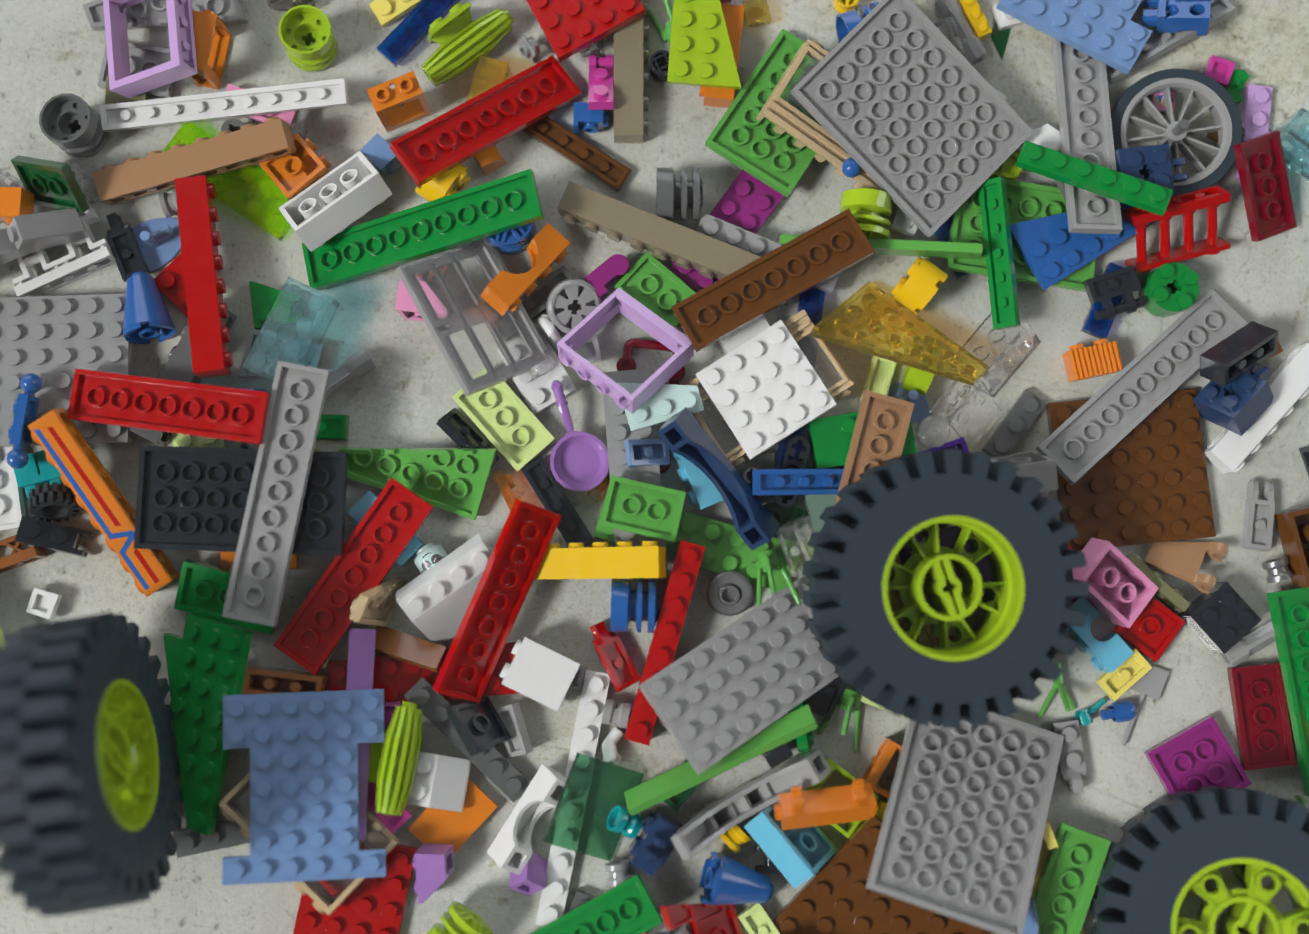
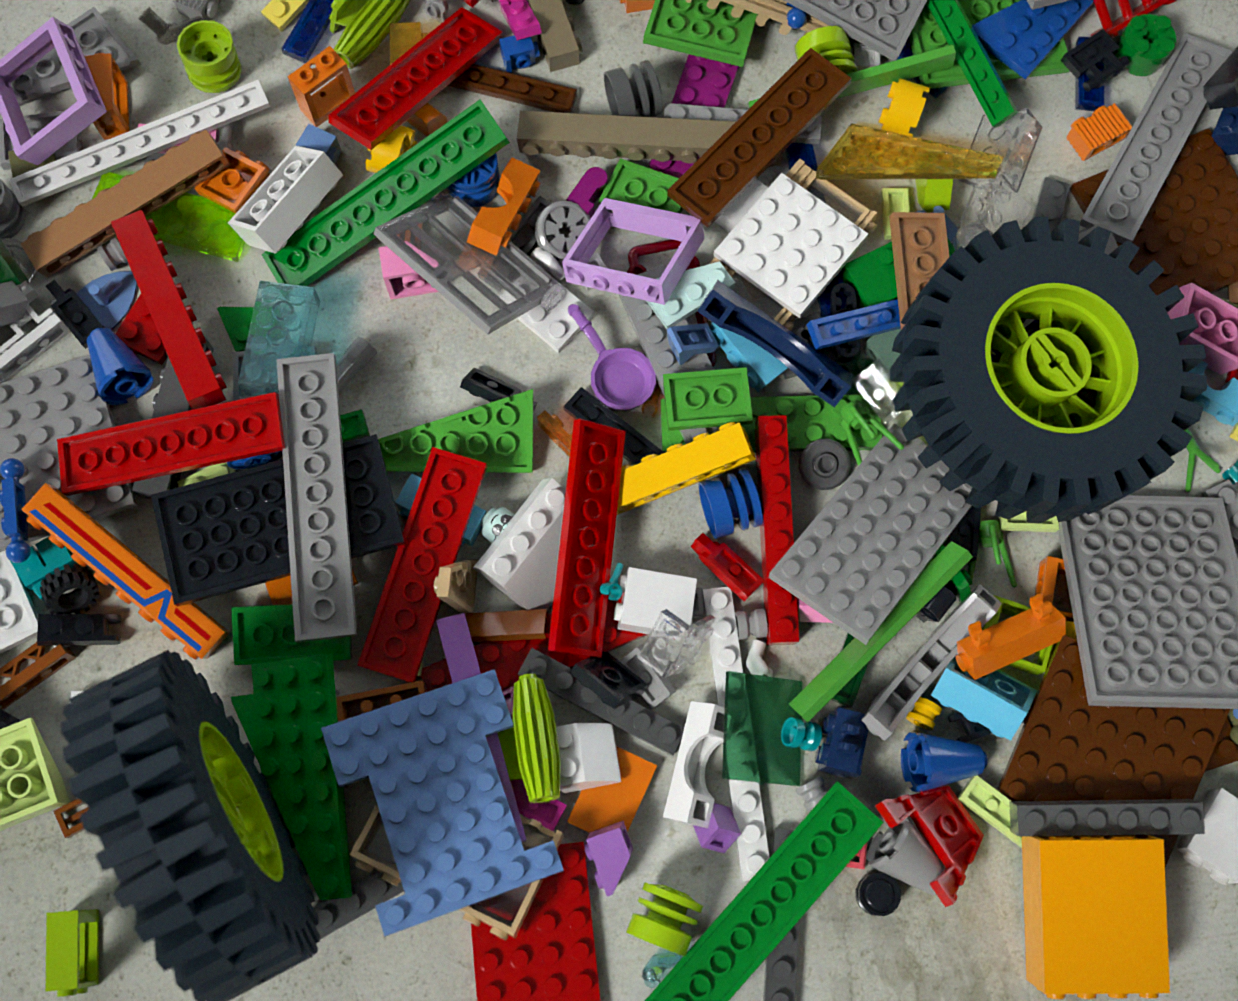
camera: 15 degrees left, 10 degrees down
(504, 649) = (613, 586): none -> teal hand
(506, 423) = (529, 364): yellowish green plate -> none
(538, 715) = (675, 643): none -> clear bracket

